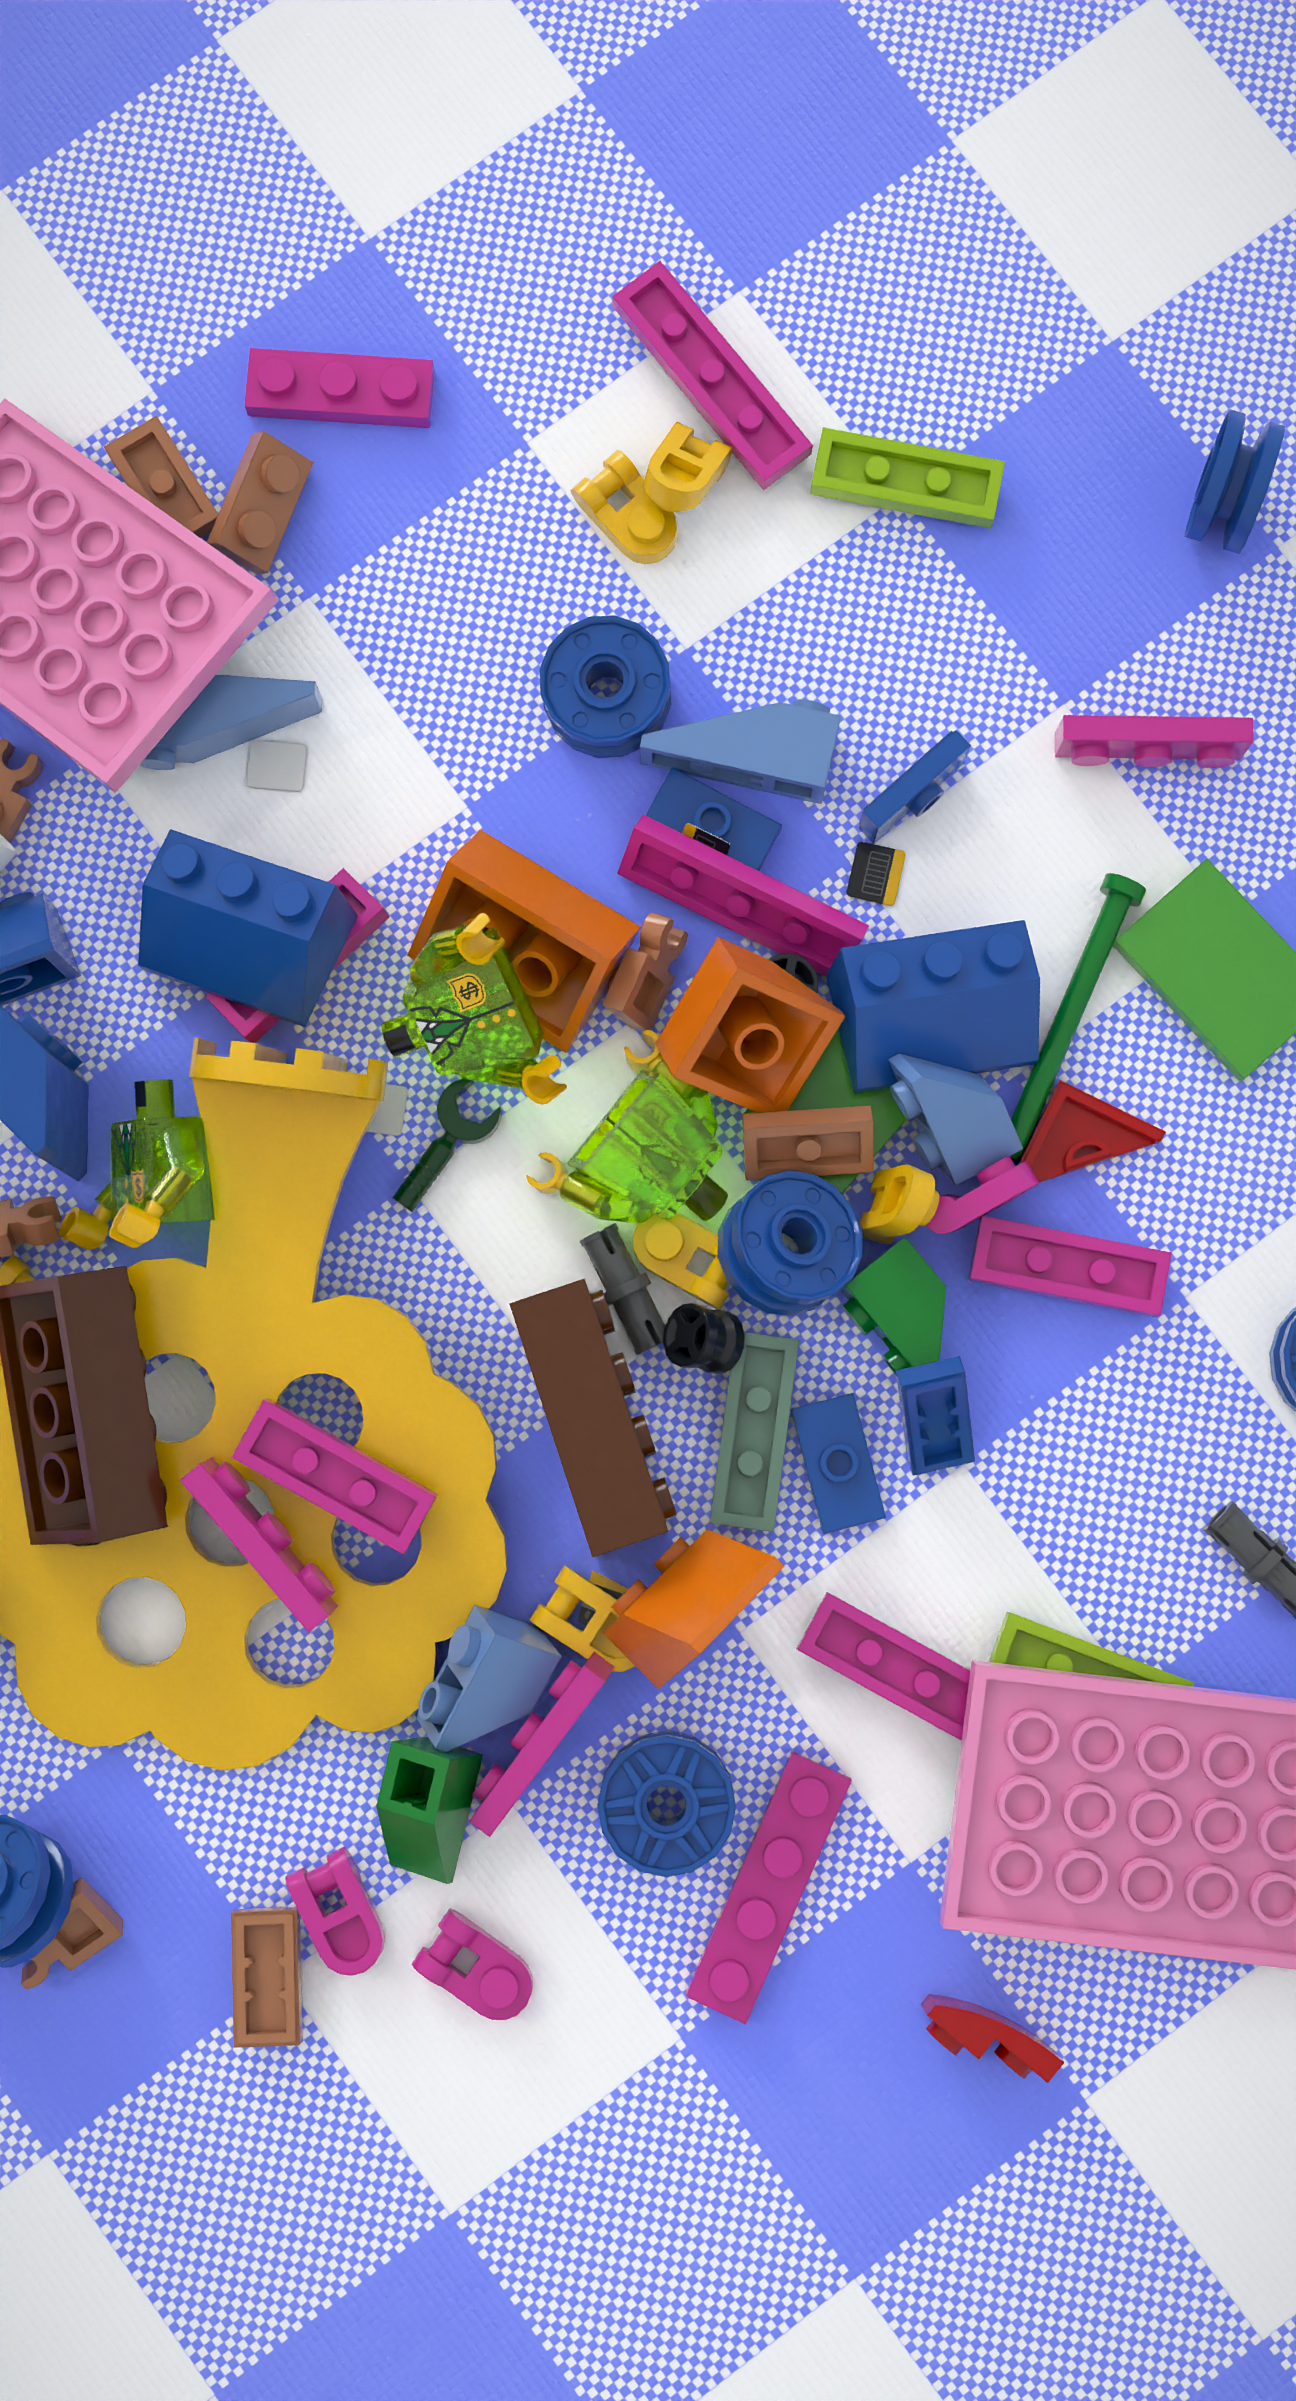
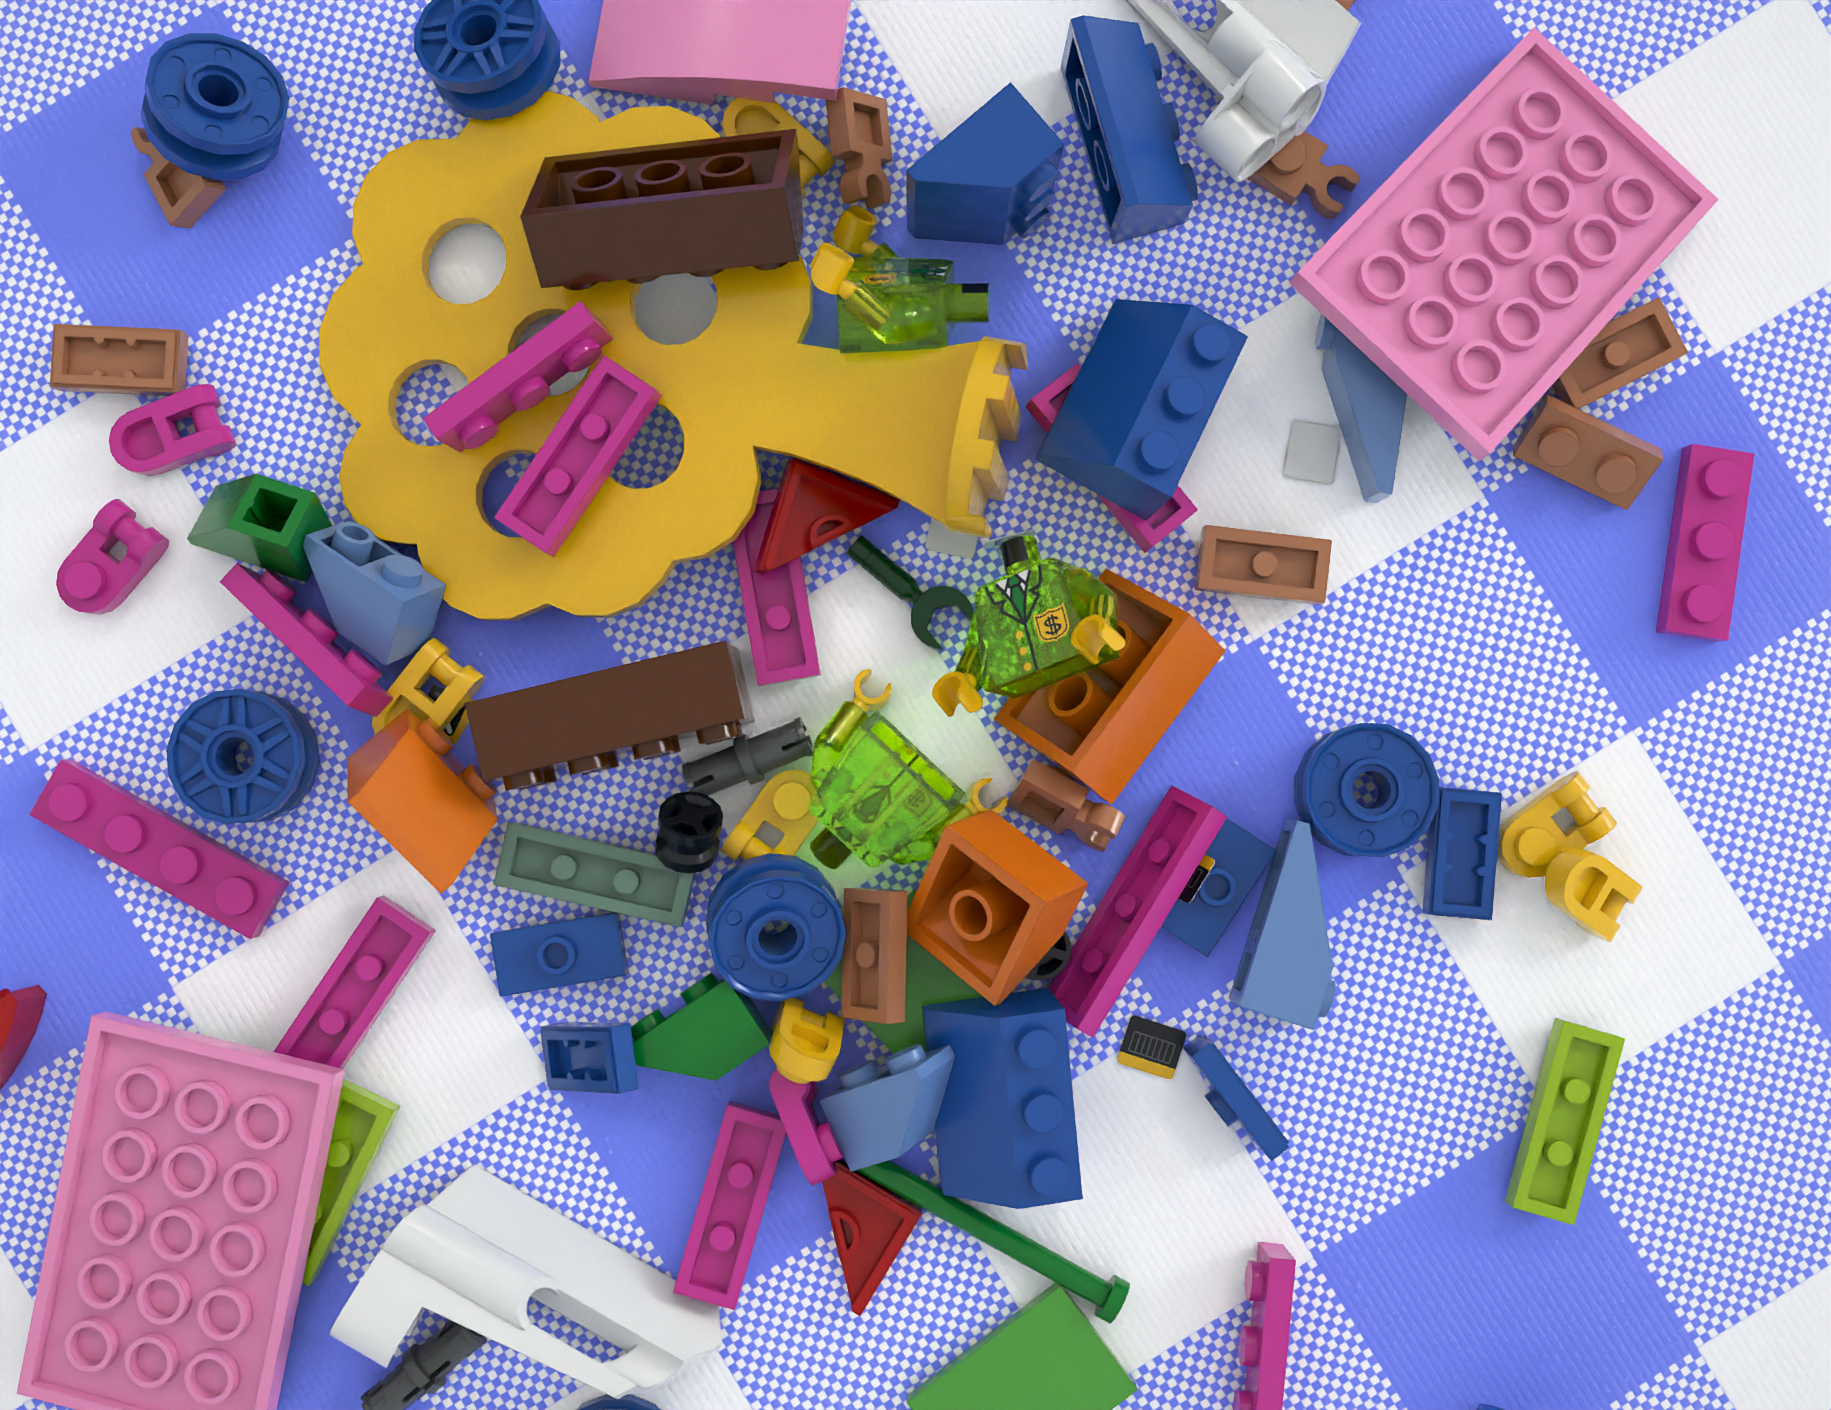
camera: 90 degrees right, 5 degrees up
(372, 1243) = (814, 510): none -> red tile
(386, 1049) = (998, 541): none -> white sticker
(392, 802) = (1263, 565): none -> nougat plate
(458, 1275) = (775, 607): none -> dark pink plate
(660, 591) = (1462, 854): none -> blue plate
(712, 375) = (1690, 927): dark pink plate -> none
(1148, 1496) = (489, 1250): none -> white panel

